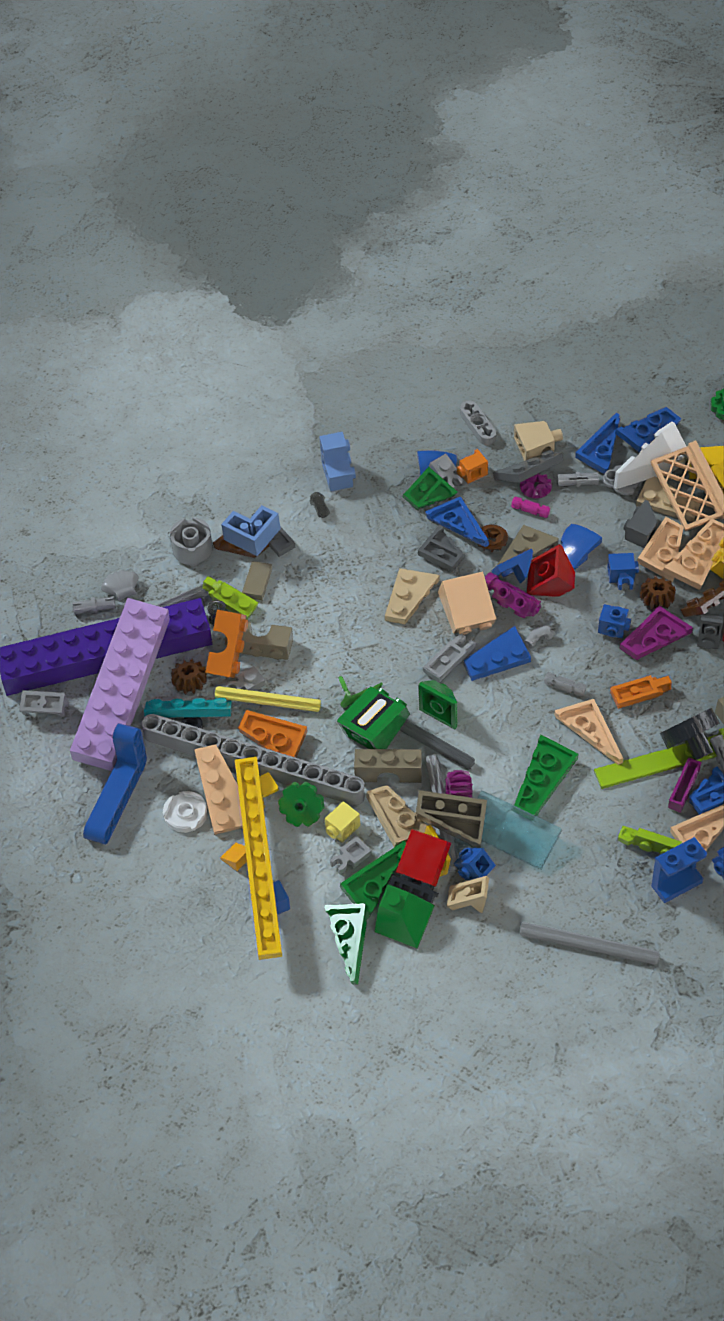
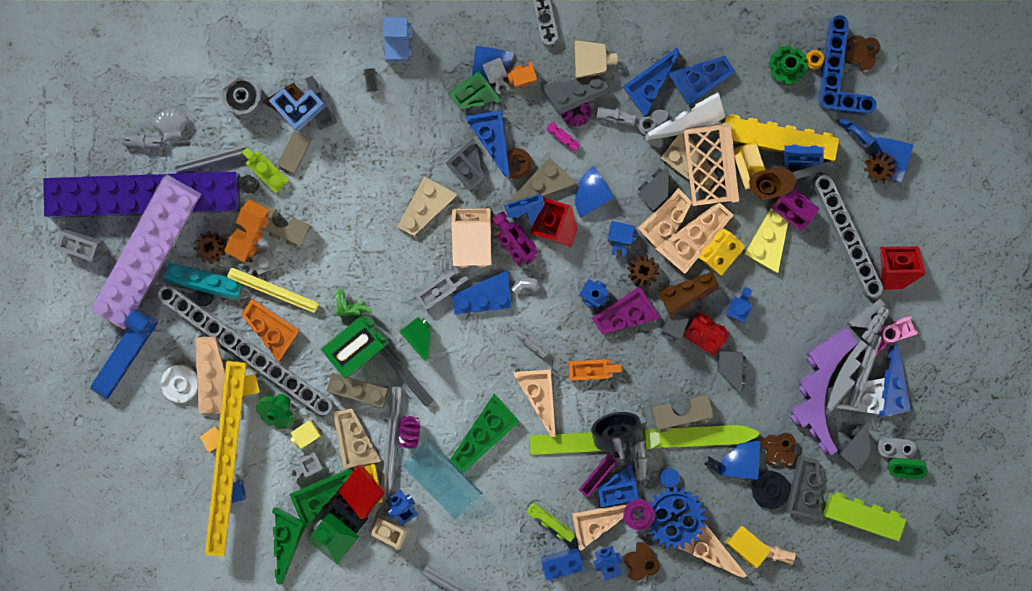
camera: 15 degrees right, 35 degrees up
(453, 815) = (394, 463): dark tan wedge -> none

